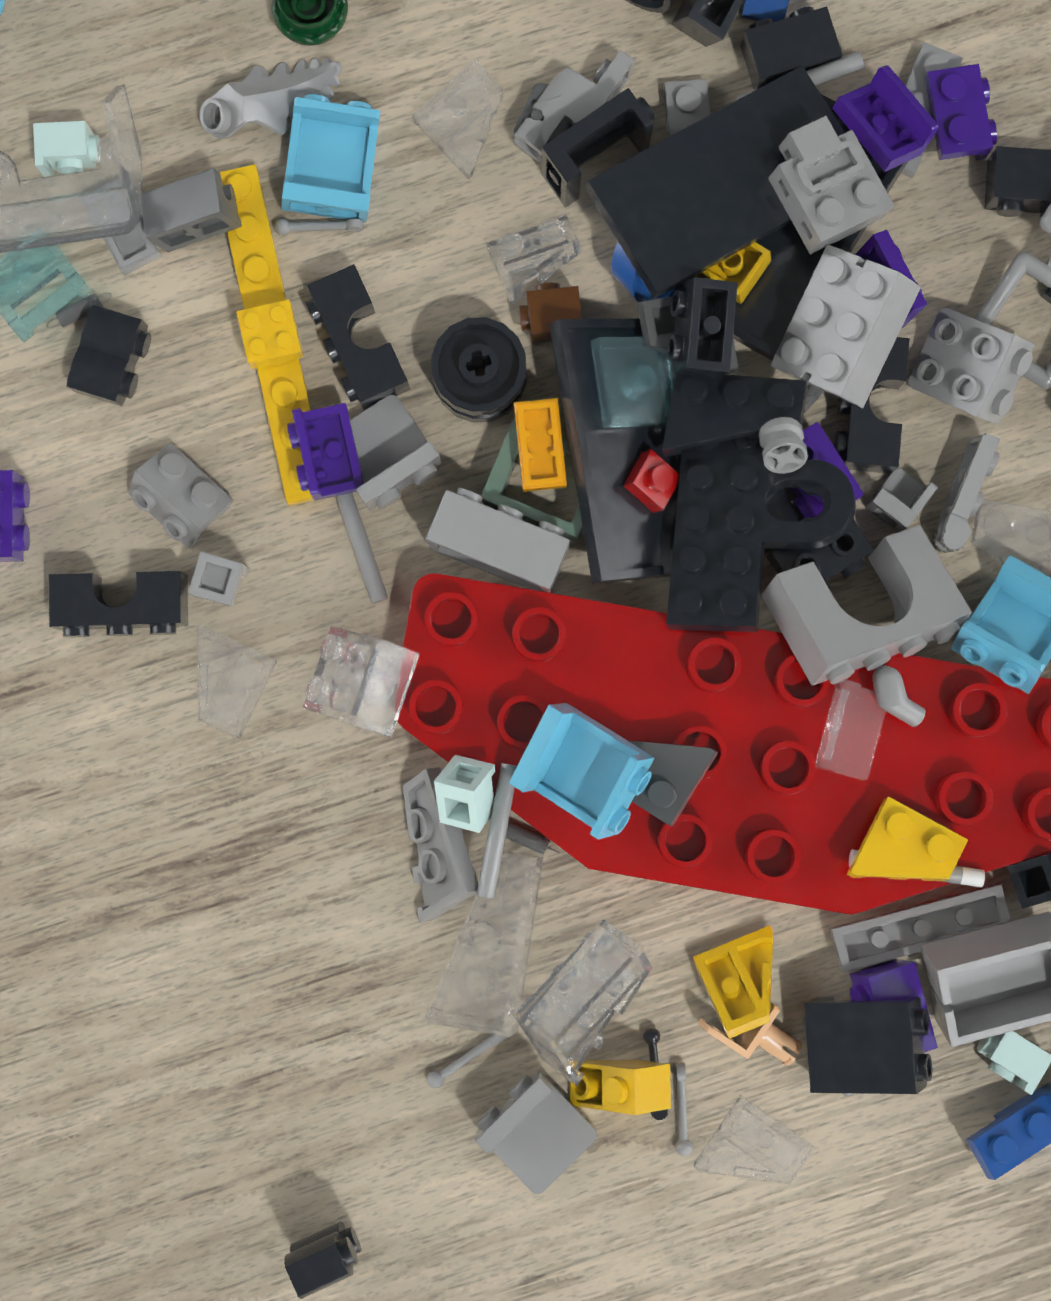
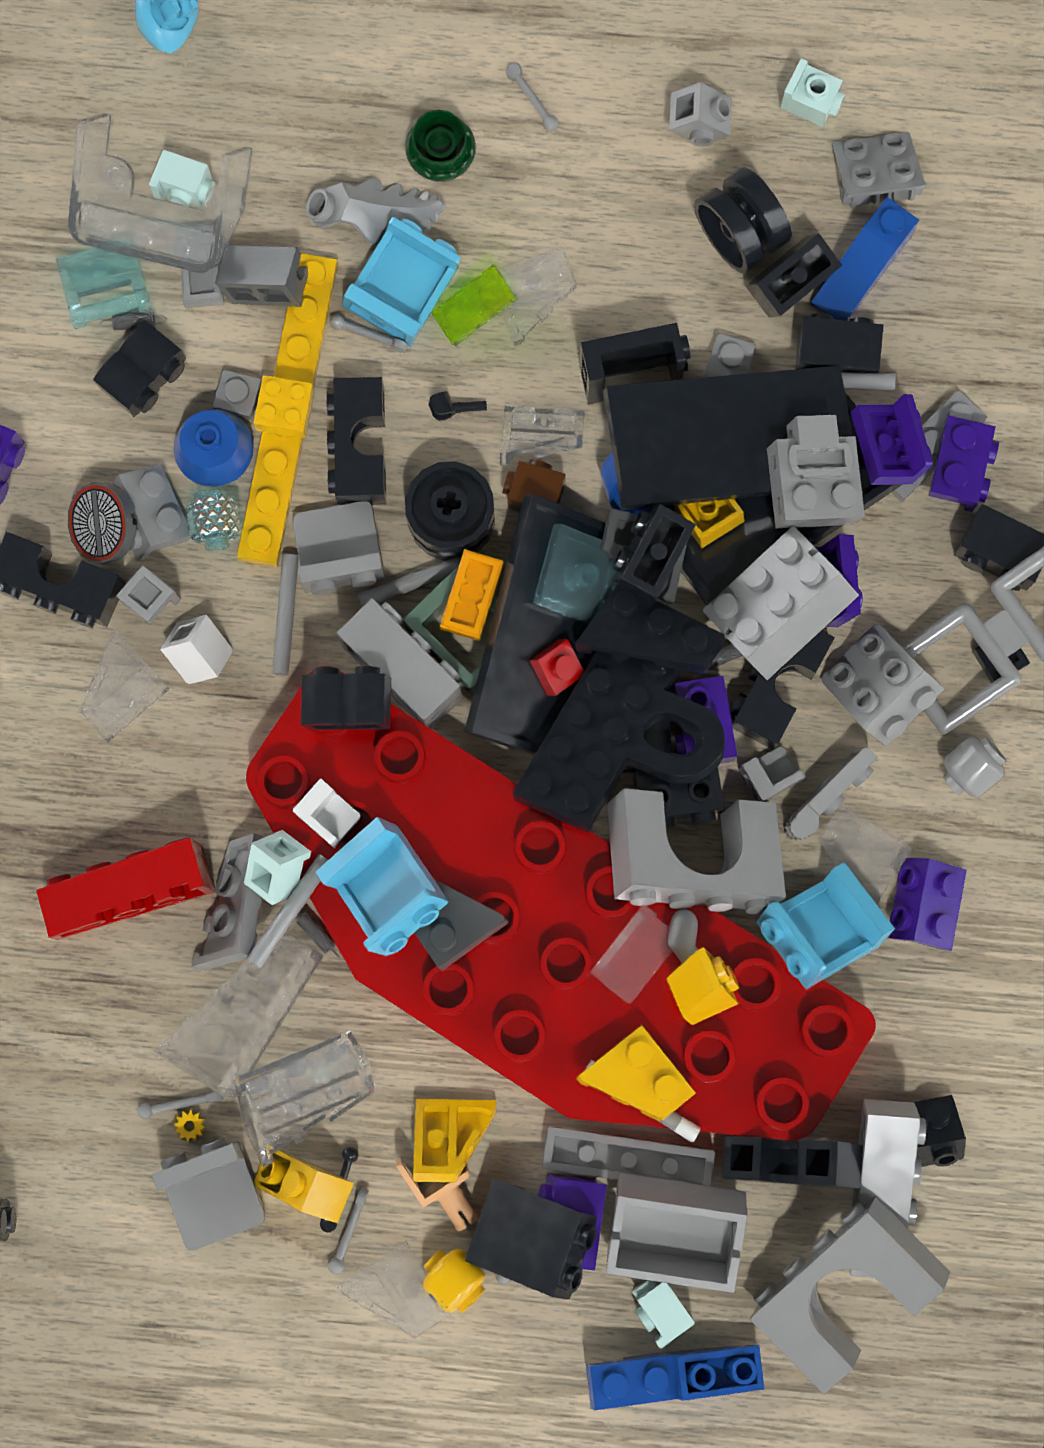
camera: 25 degrees right, 5 degrees down
(139, 525) = (101, 522): none -> tile
(215, 341) = (237, 394): none -> light grey plate
(215, 404) = (213, 447): none -> blue cone
(248, 475) = (213, 519): none -> clear light blue head
(288, 611) = (197, 649): none -> white panel
(322, 876) = (125, 888): none -> red wedge
(327, 451) = (288, 525): dark purple bracket -> none
(361, 680) = (230, 732): clear brick -> none
(413, 153) = (474, 305): none -> clear neon green plate
(426, 270) = (443, 408): none -> black hand
(466, 602) = (346, 700): none -> black brick
(468, 456) = (409, 582): none -> light grey bar
(485, 1066) = (198, 1126): none -> yellow piece
(495, 721) = (327, 813): none -> white panel
(566, 101) = (627, 312): light grey plate -> none
(783, 445) = (679, 681): light grey wheel -> none
(804, 1115) = (453, 1281): none -> yellow head
(935, 735) = (703, 986): none -> yellow slope

